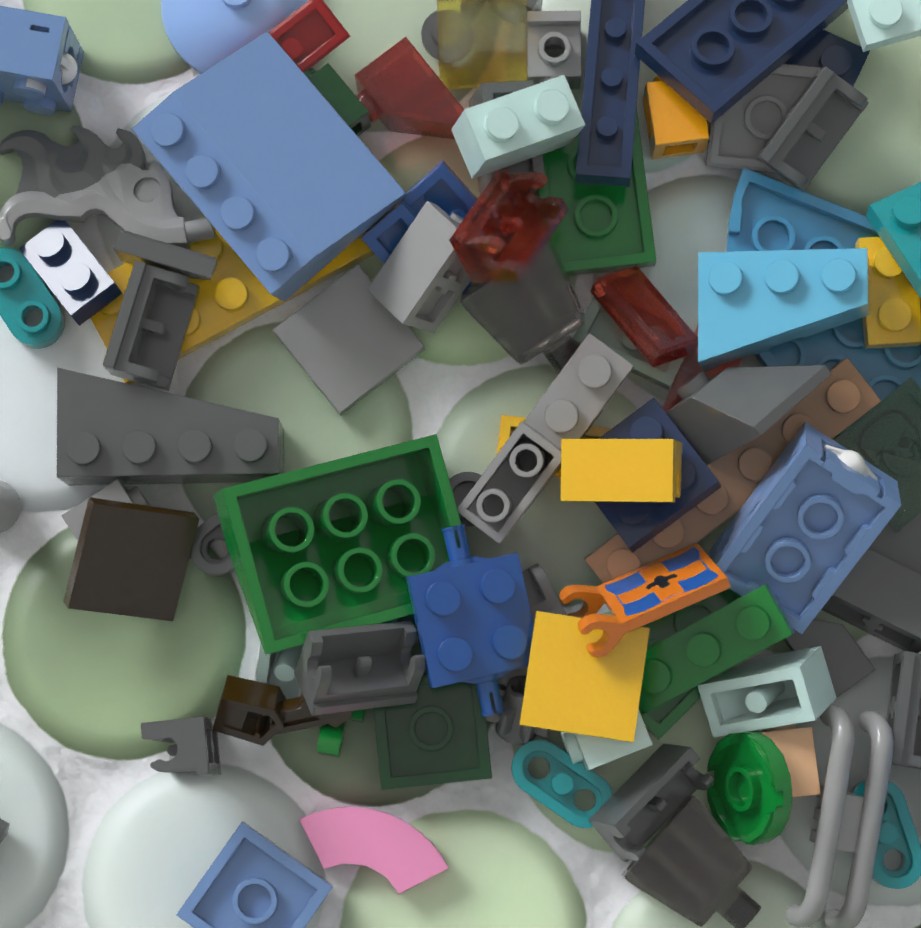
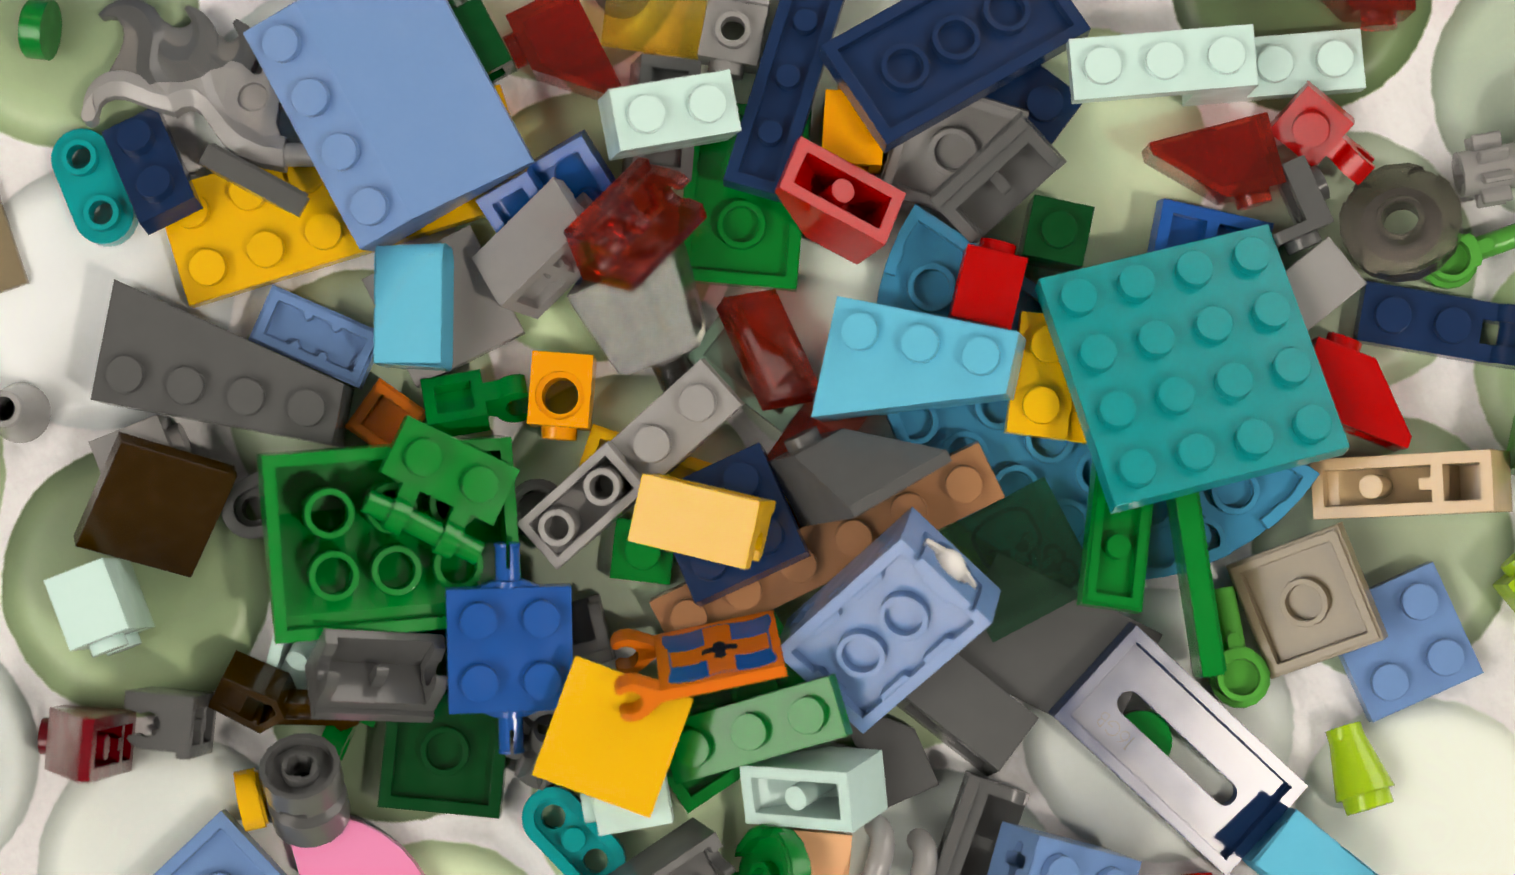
camera: 10 degrees right, 5 degrees up
(99, 658) = (100, 606): none -> light aqua brick
(109, 781) = (87, 742): none -> dark red slope
(151, 326) = (226, 253): dark grey hinge -> none
(244, 385) = (315, 336): none -> medium blue plate
(266, 806) = (251, 799): none -> yellow tile
(315, 786) = (305, 790): none -> dark grey wheel
(318, 443) = (382, 414): none -> orange tile
(325, 340) = (414, 306): none -> medium azure piece
(387, 419) = (462, 402): none -> green plate
(389, 473) = (449, 472): none -> green plate
(469, 369) = (555, 367): none -> light orange brick
(567, 522) = (638, 561): none -> green plate
(679, 176) = (837, 201): none -> red slope
(825, 216) = (988, 284): none -> red brick
(870, 168) = (1055, 233): none -> dark green brick

